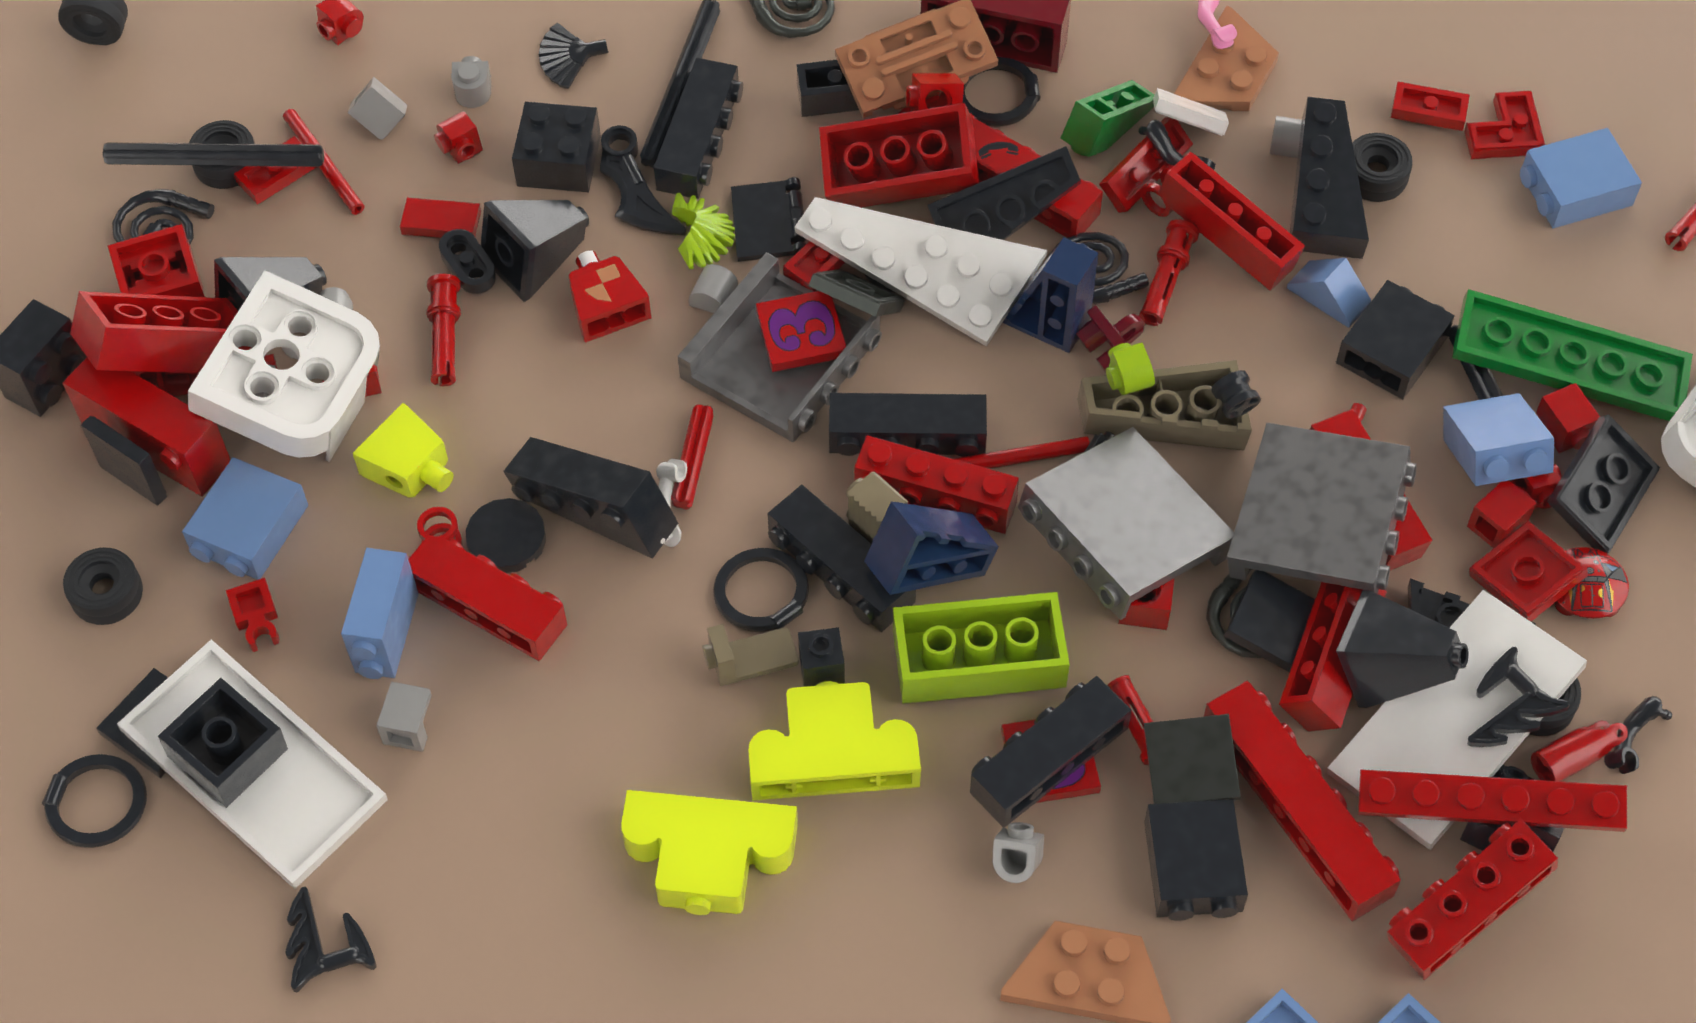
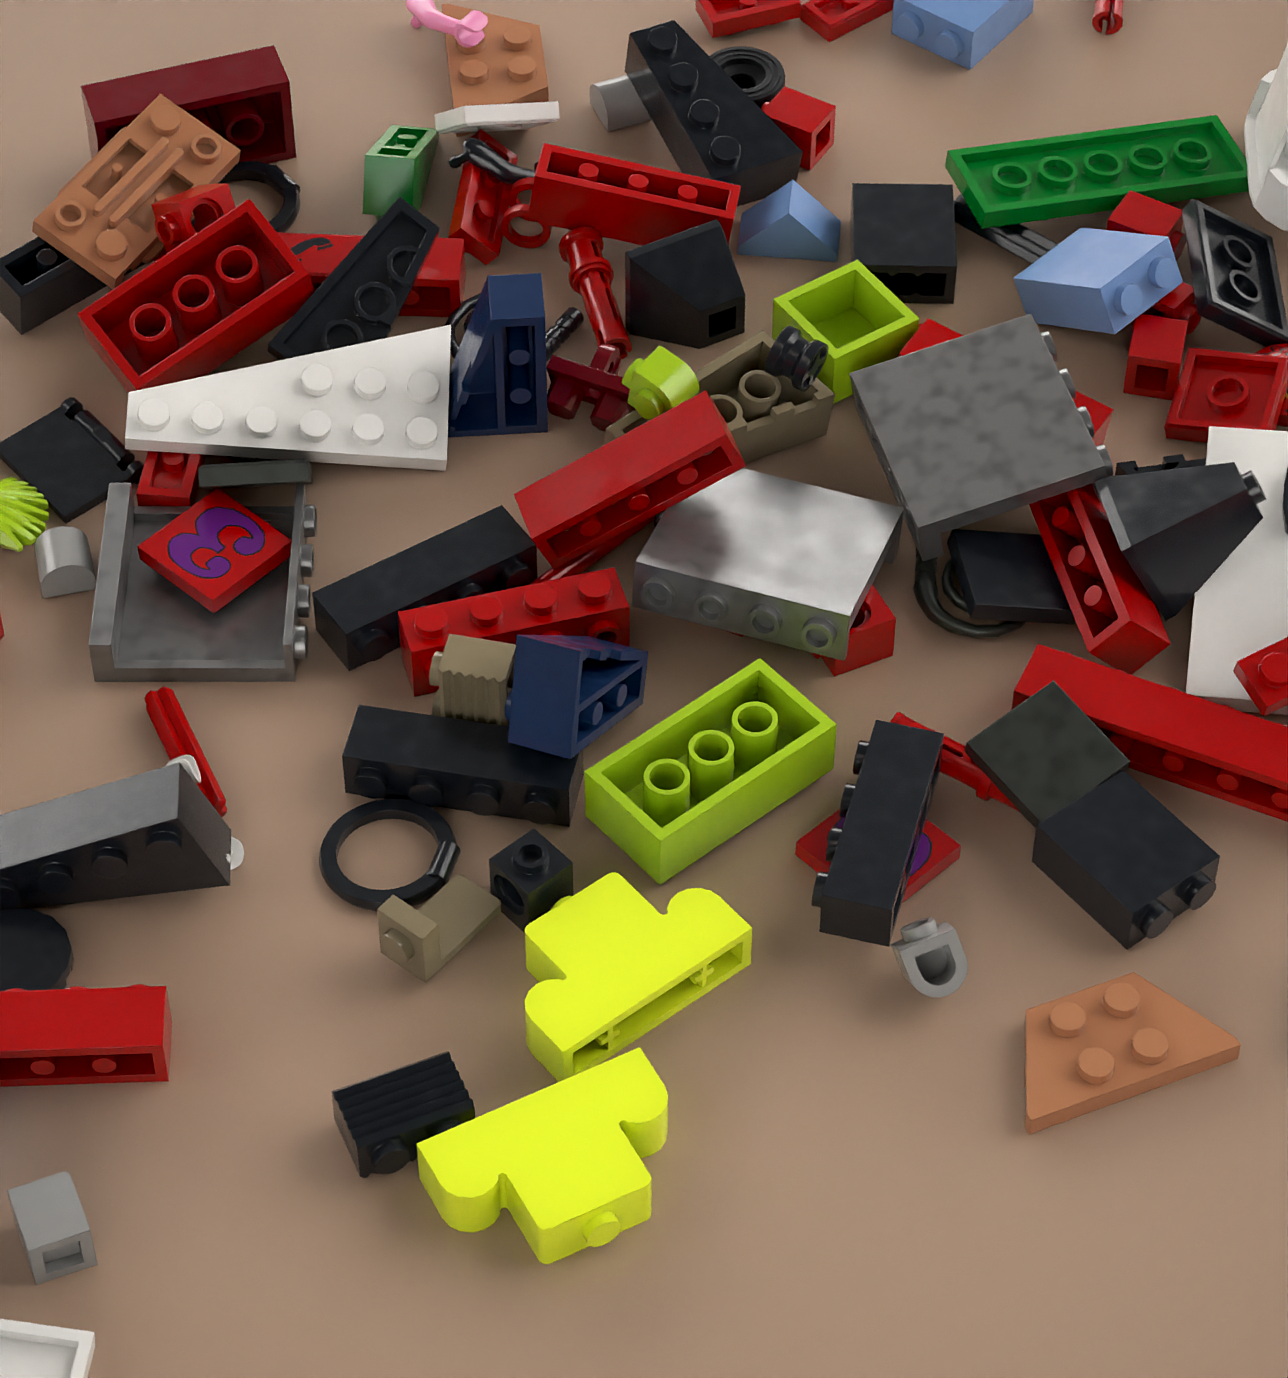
camera: 35 degrees left, 10 degrees down
(641, 763) = (398, 1109): none -> black brick
(1067, 423) = (629, 475): none -> red brick
(1217, 300) = (684, 289): none -> black slope
(1299, 382) = (852, 316): none -> lime piece
(1390, 216) = (805, 121): none -> red brick

